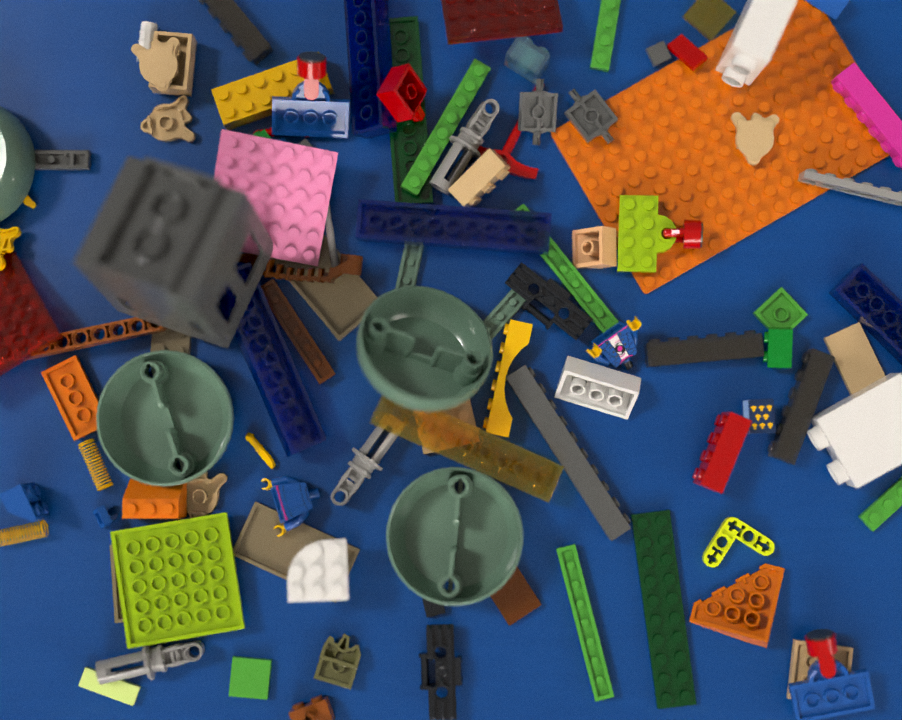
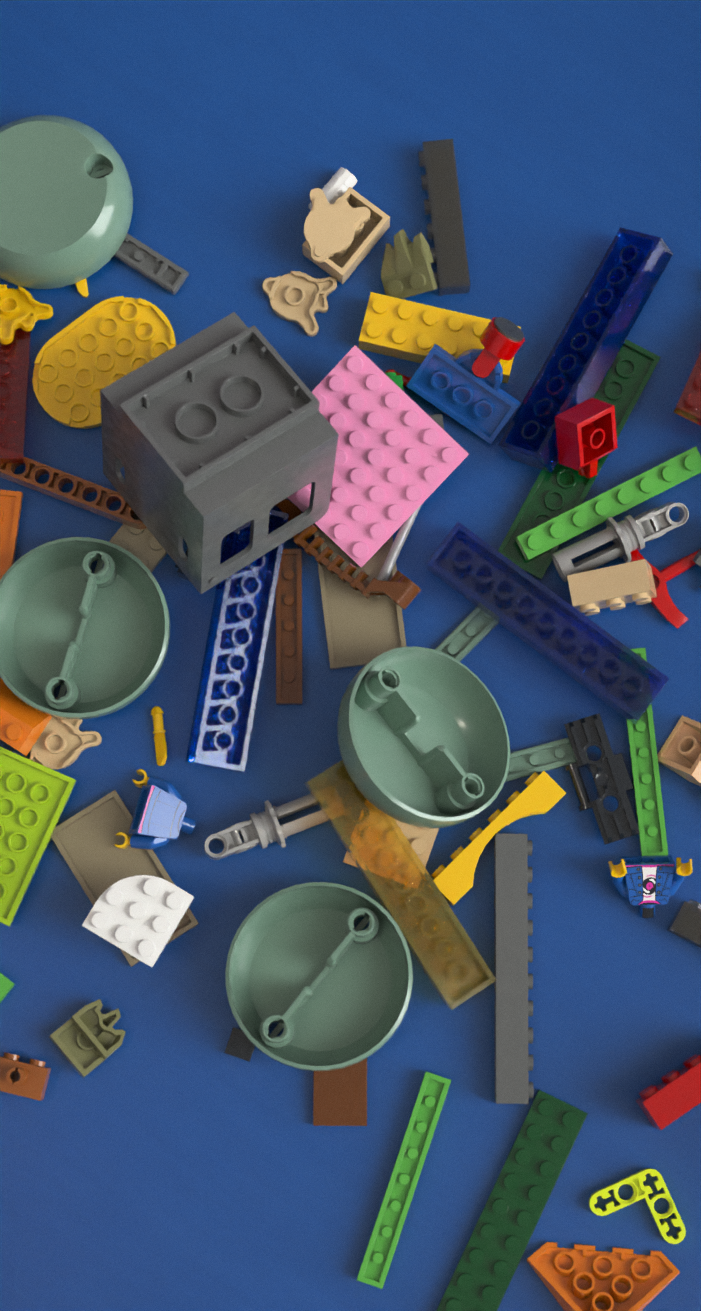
camera: 30 degrees right, 5 degrees down
(59, 237) = (95, 353): none -> yellow plate
(224, 59) = (407, 267): none -> olive plate
(447, 671) = (207, 1129): black piece -> none
(598, 387) = (595, 916): white slope -> none

